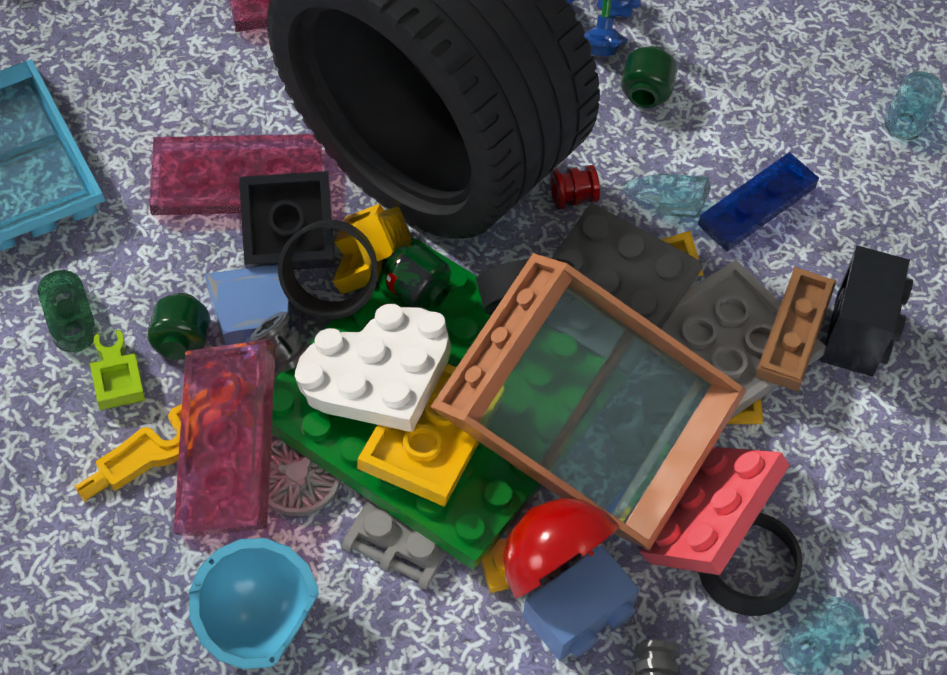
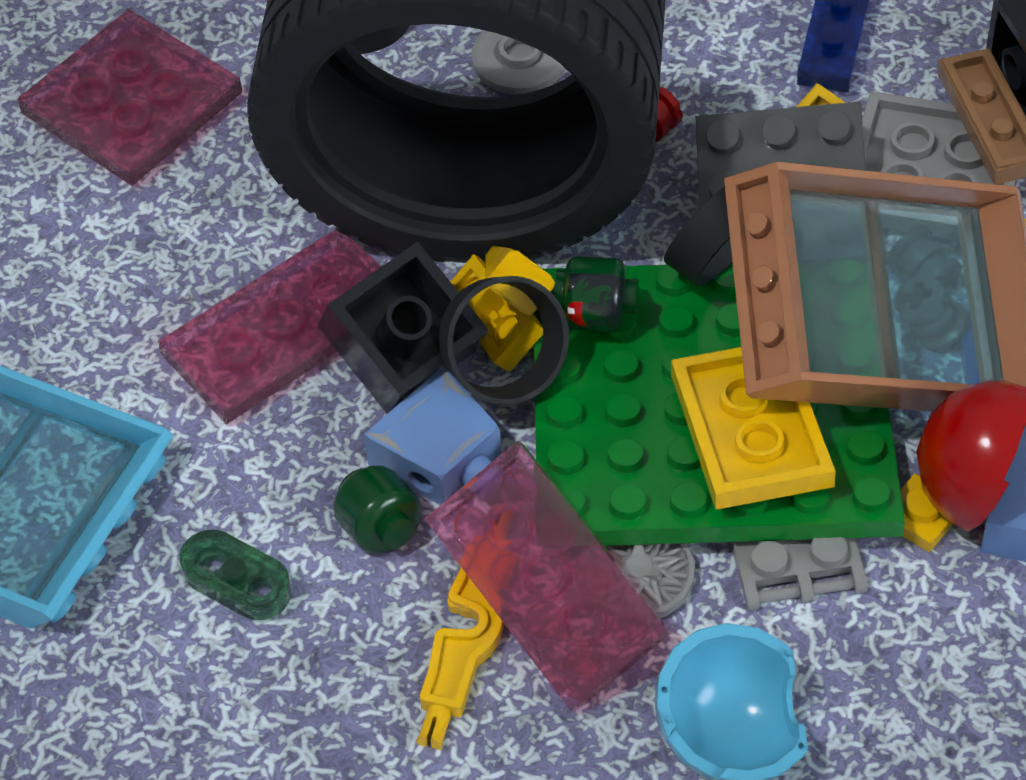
camera: 30 degrees left, 5 degrees down
(116, 376) = (355, 603): lime plate -> none
(277, 328) = (501, 431): dark grey bush -> none
(379, 372) = (649, 401): white plate -> none
(671, 193) = (749, 67): clear light blue plate -> none

